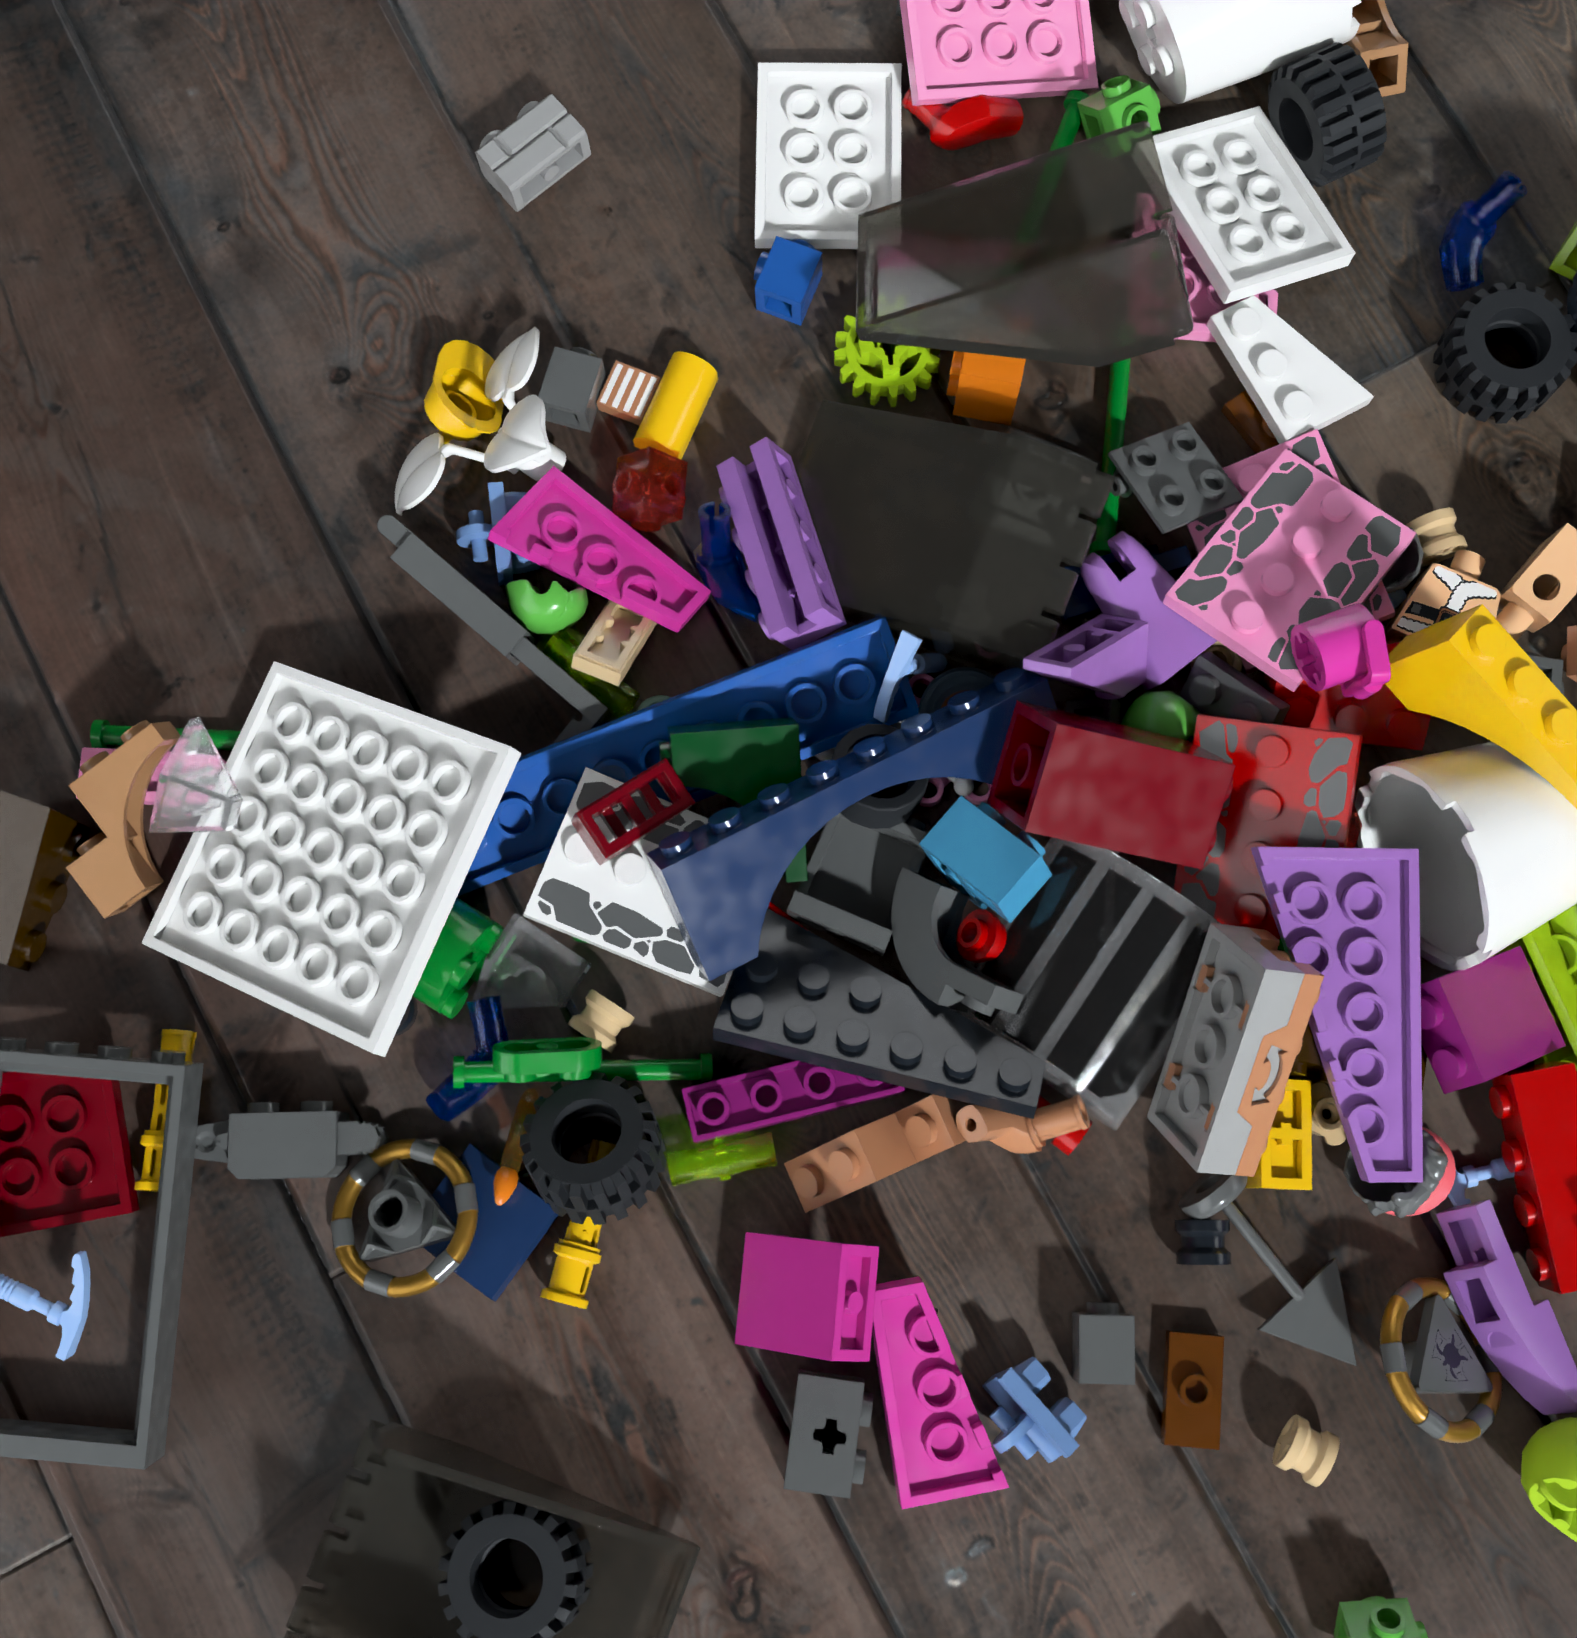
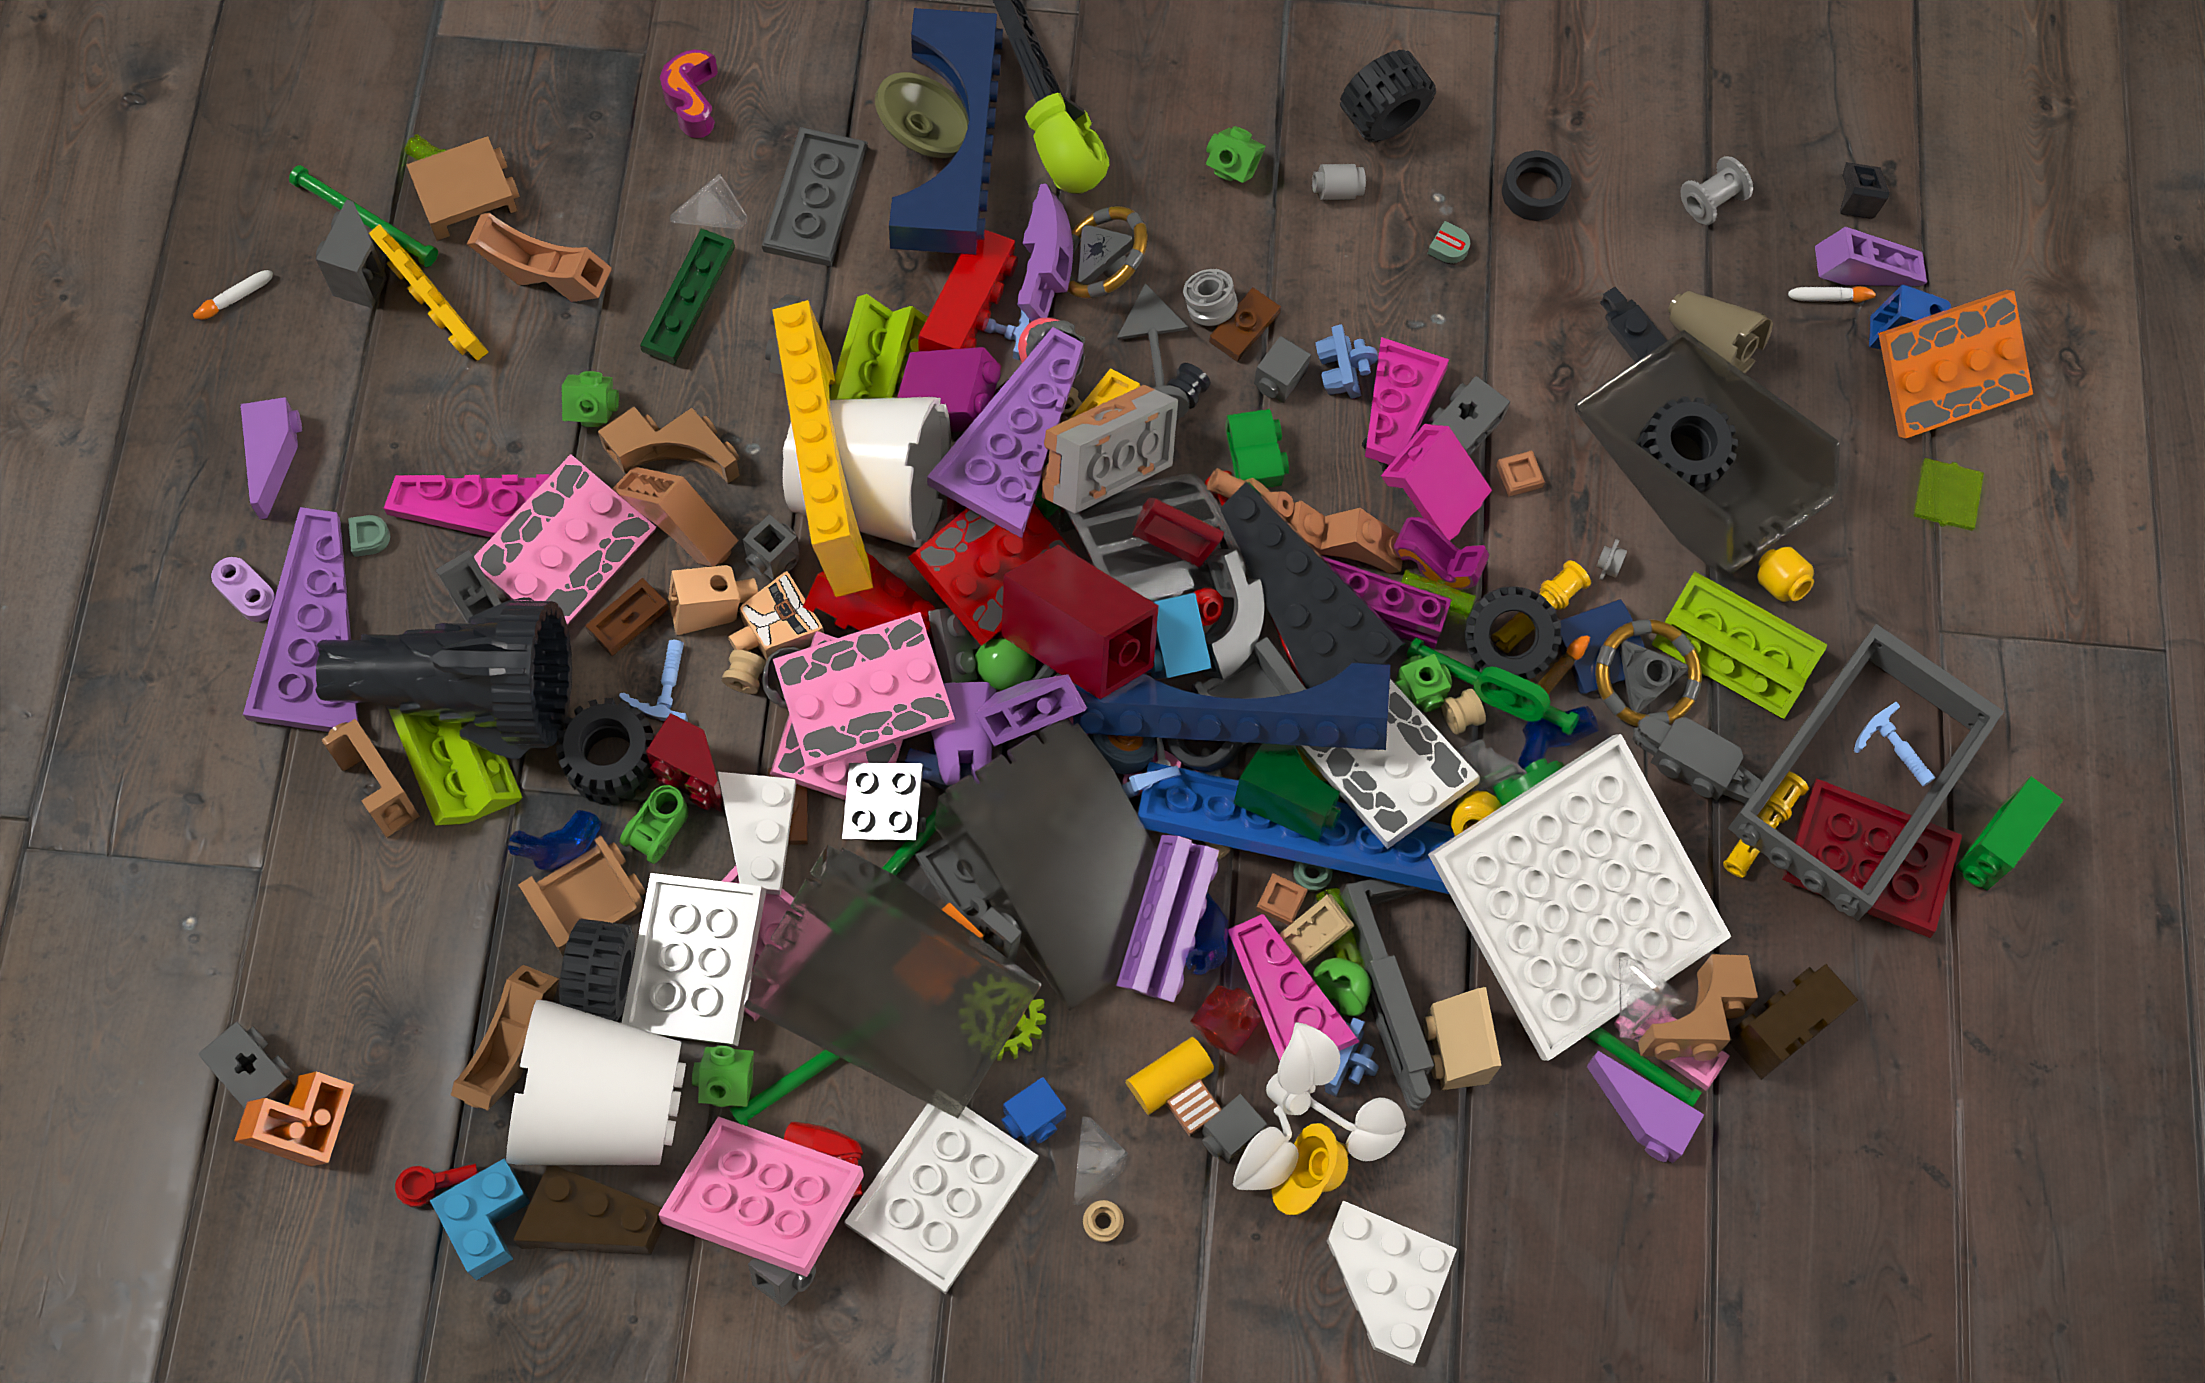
camera: 155 degrees left, 10 degrees down
(121, 679) = (1649, 1112): none -> medium lavender slope
(300, 1477) = (1785, 574): none -> yellow head
(309, 1340) = (1743, 645): none -> lime slope
(326, 355) = (1390, 1277): none -> white plate
(380, 620) = (1463, 1040): none -> tan slope
(502, 879) = (1472, 809): none -> yellow head
(532, 1349) = (1611, 560): none -> light grey plate
(533, 151) = (1151, 1331): light grey brick -> none
(593, 837) = (1375, 774): dark red slope -> none
(649, 215) = (1103, 1208): none -> tan plate
(674, 668) = (1281, 899): none -> nougat tile
(682, 1034) = (1425, 694): none -> bright green brick
(688, 270) = (1098, 1161): none -> clear slope
(716, 1406) = (1520, 473): none -> nougat tile
(745, 1203) = (1438, 556): none -> magenta animal
(957, 406) = (997, 929): none -> dark grey plate
(1061, 1207) = (1254, 447): none -> green brick
(1075, 988) = (1176, 532): none -> dark red tile
(1282, 1395) = (1210, 297): none -> light grey wheel
(1306, 1450) = (1205, 255): tan wheel -> none
(1343, 650) = (887, 604): dark pink piece -> none
(1390, 312) = (655, 827): none -> bright green piece
(1406, 201) = (585, 889): none -> medium nougat panel
(1415, 383) = (684, 760): none -> dark red slope
(1506, 483) = (669, 678): none -> light blue piece

